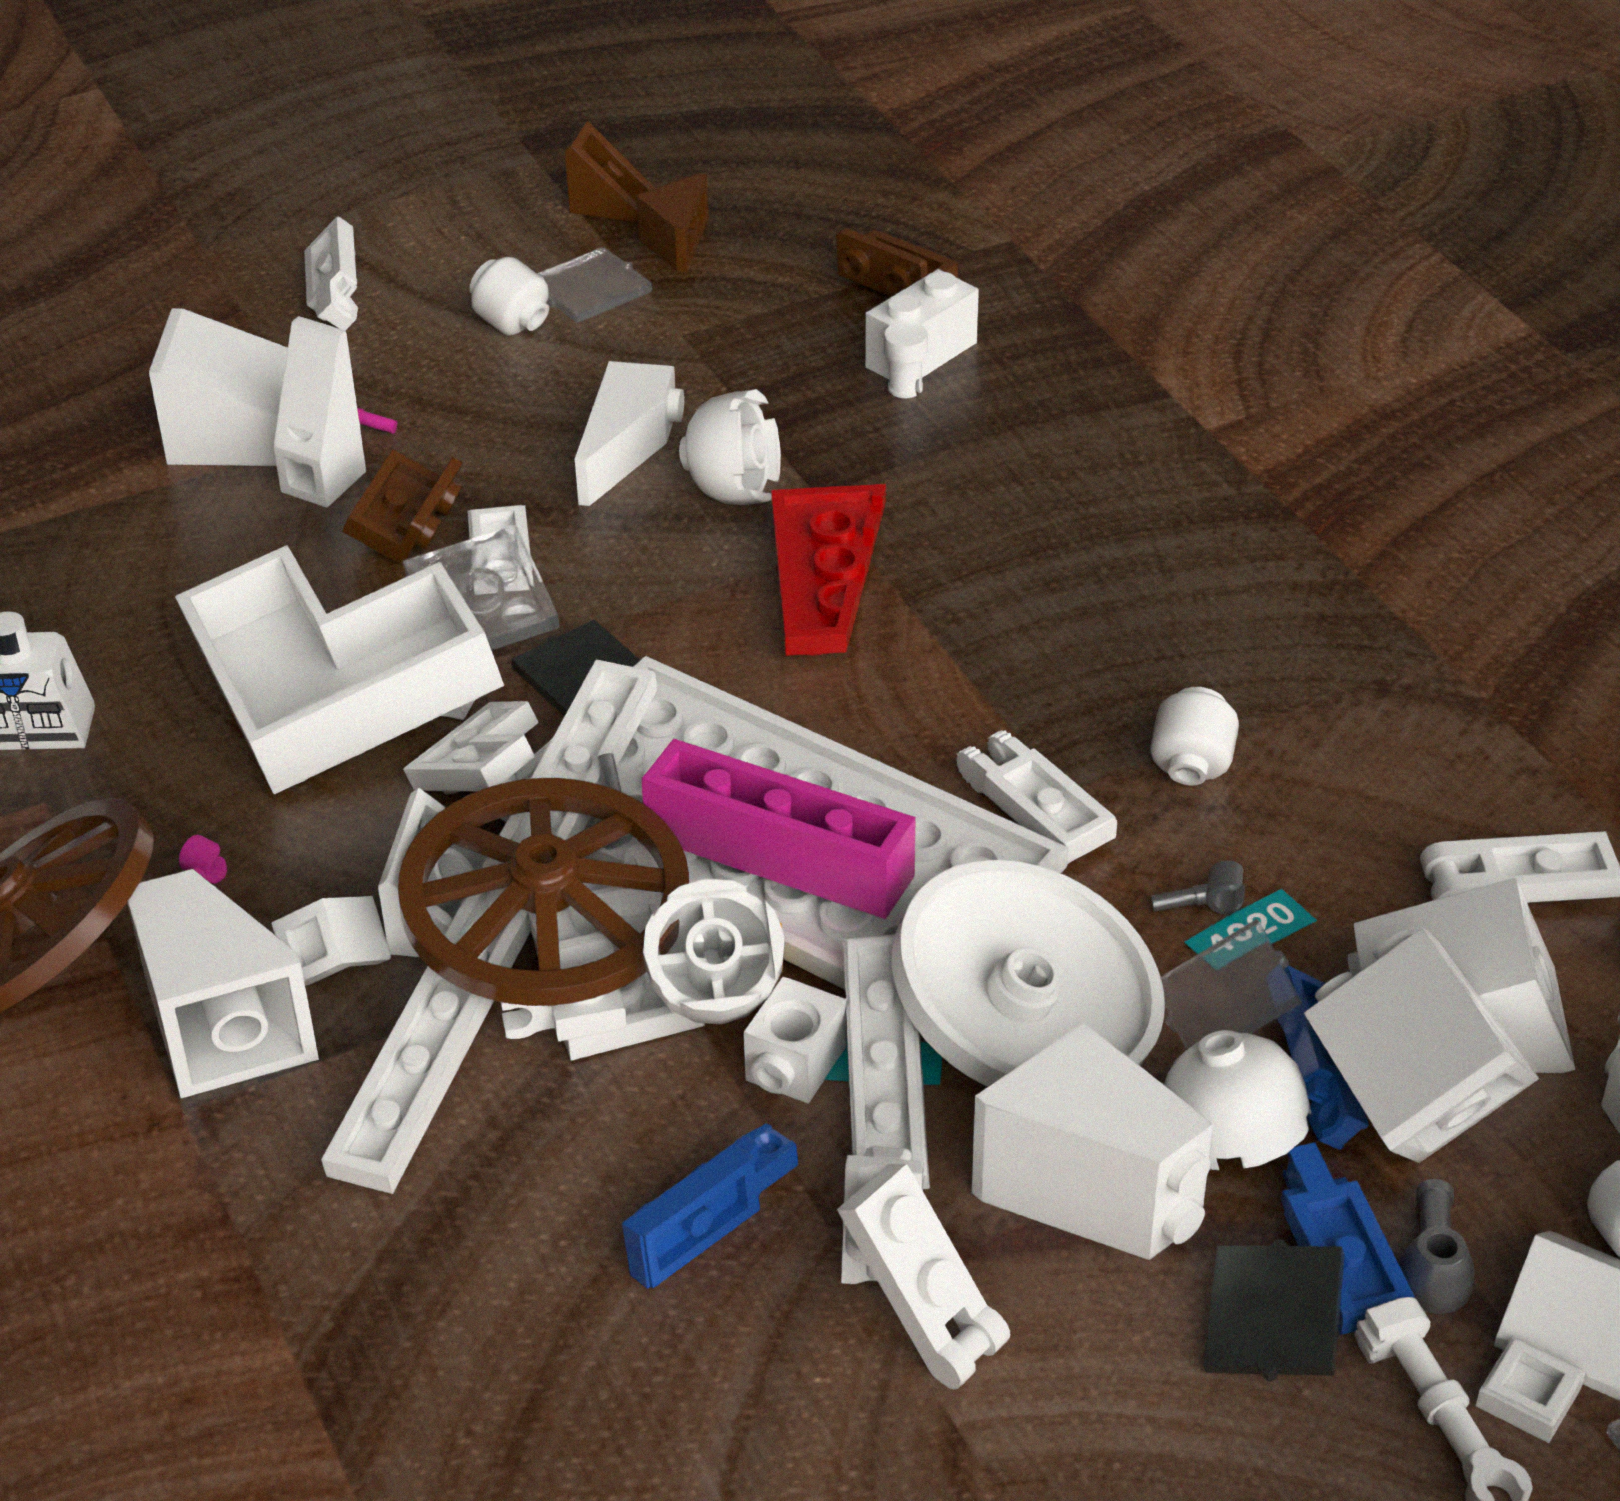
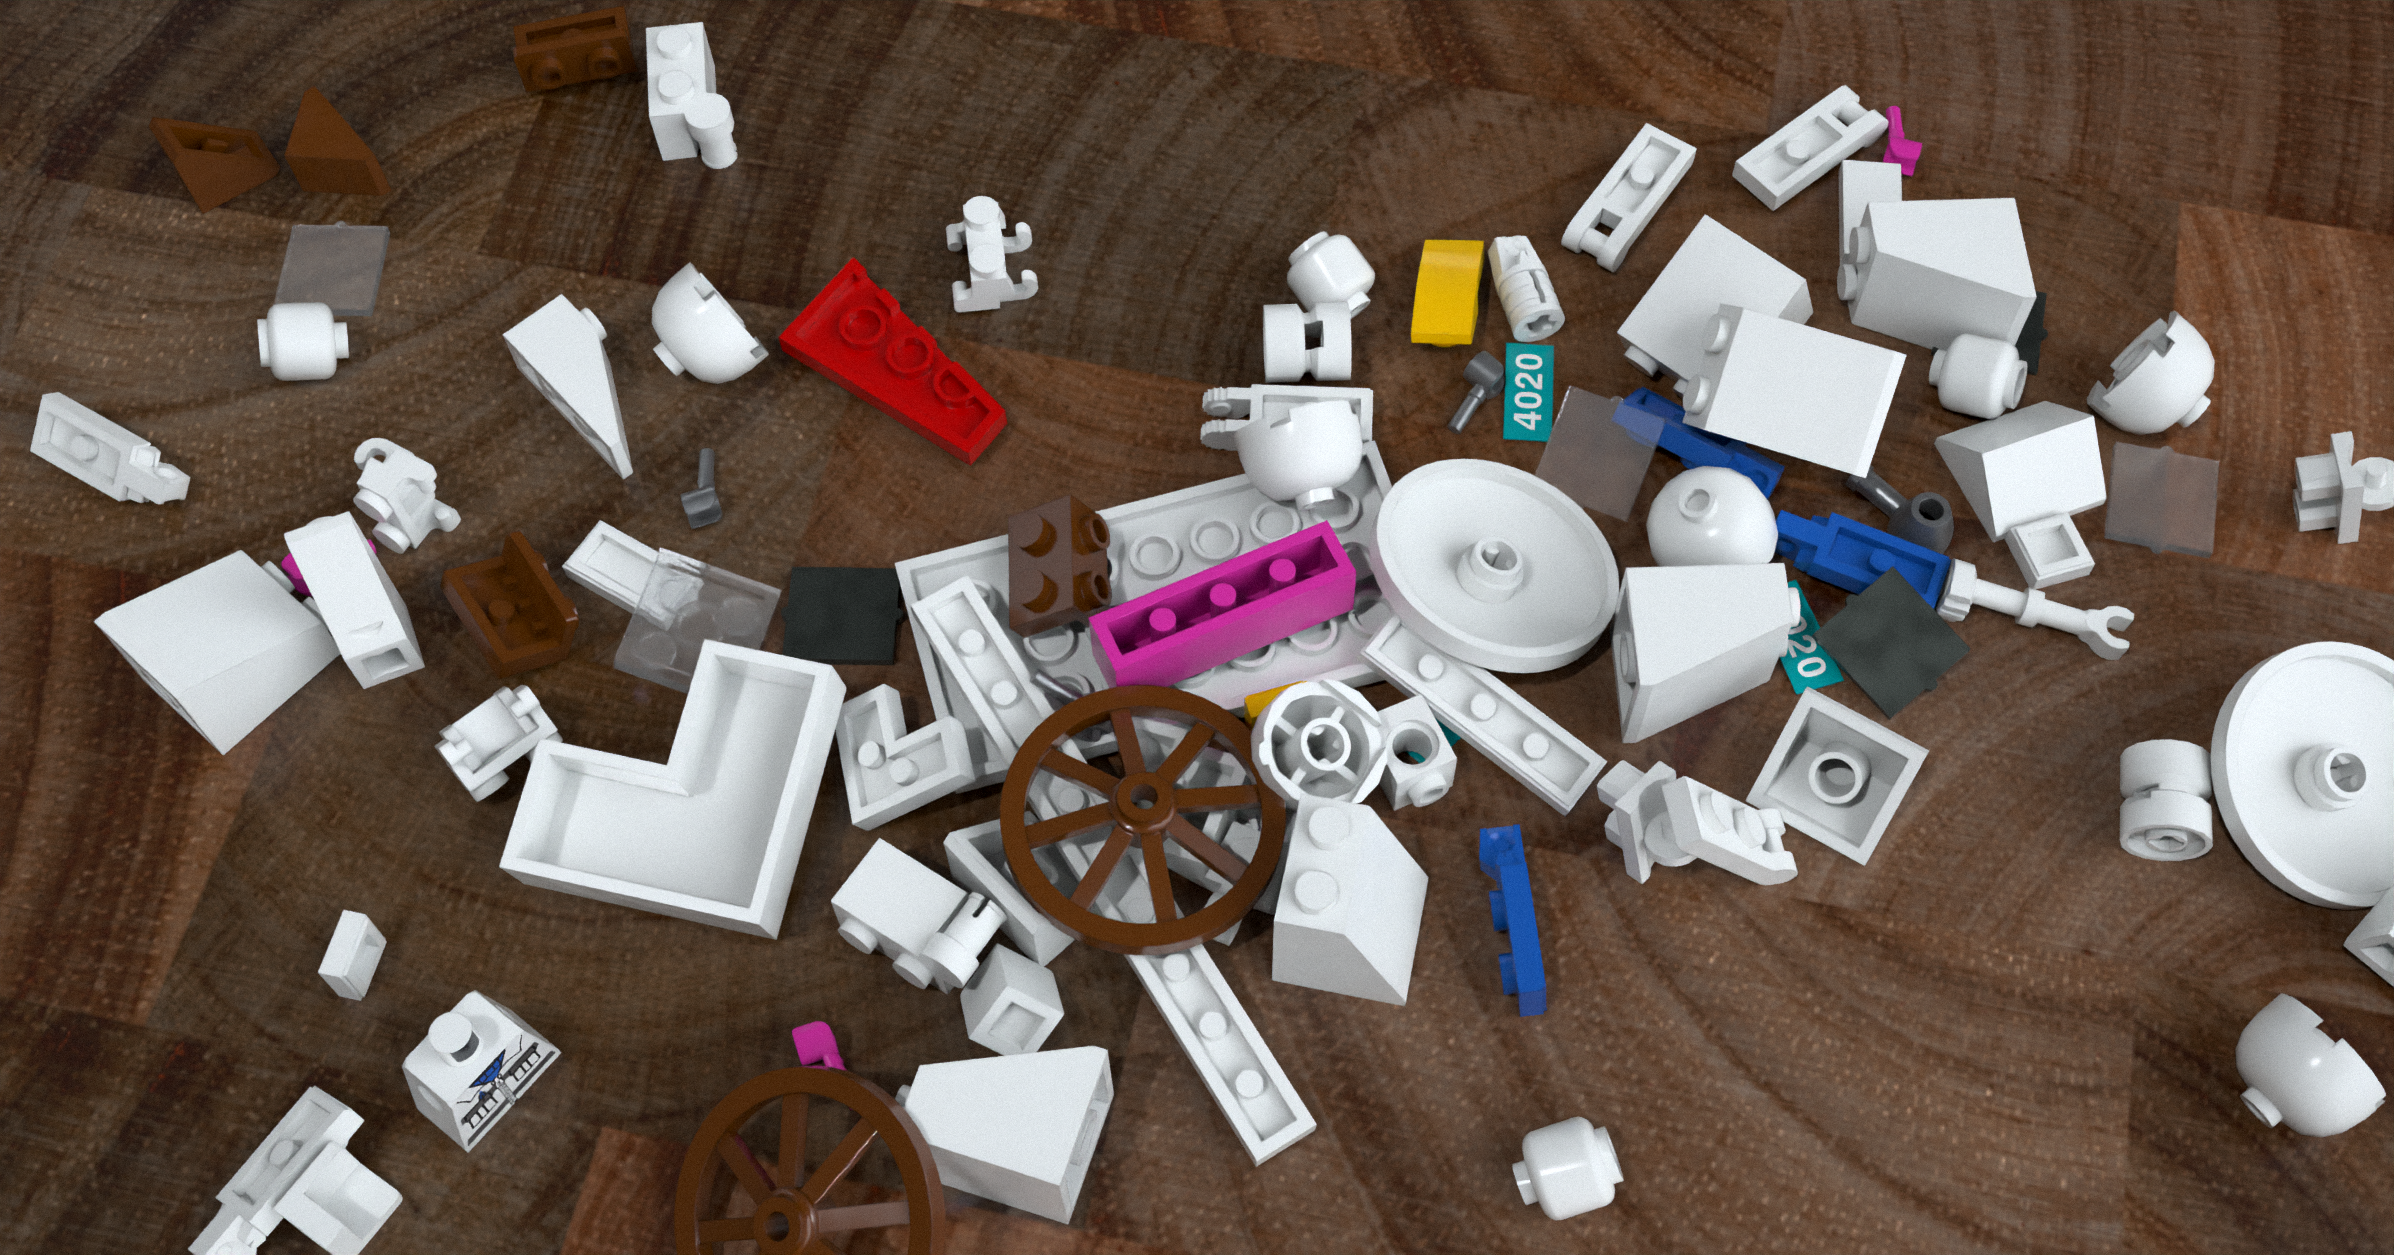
camera: 50 degrees left, 20 degrees up
(60, 595) = (352, 955): none -> white tile
(314, 551) = (493, 738): none -> white piece
(348, 835) = (915, 918): none -> white hinge
(435, 399) = (400, 495): none -> white piece
(497, 1371) = (1568, 1168): none -> white head
(596, 1060) = (1347, 904): none -> white slope
(600, 546) = (702, 504): none -> flat silver hand
(743, 721) = (1057, 566): none -> reddish brown bracket
(974, 549) = (986, 257): none -> white piece
(983, 787) = (1302, 453): none -> white cylinder
(1082, 1347) = (1837, 775): none -> white slope
(1111, 754) = (1285, 342): none -> white wheel
(1226, 1225) = (1805, 659): none -> teal sticker
(1267, 811) = (1447, 292): none -> yellow slope
(1337, 856) = (1524, 289): none -> white hinge

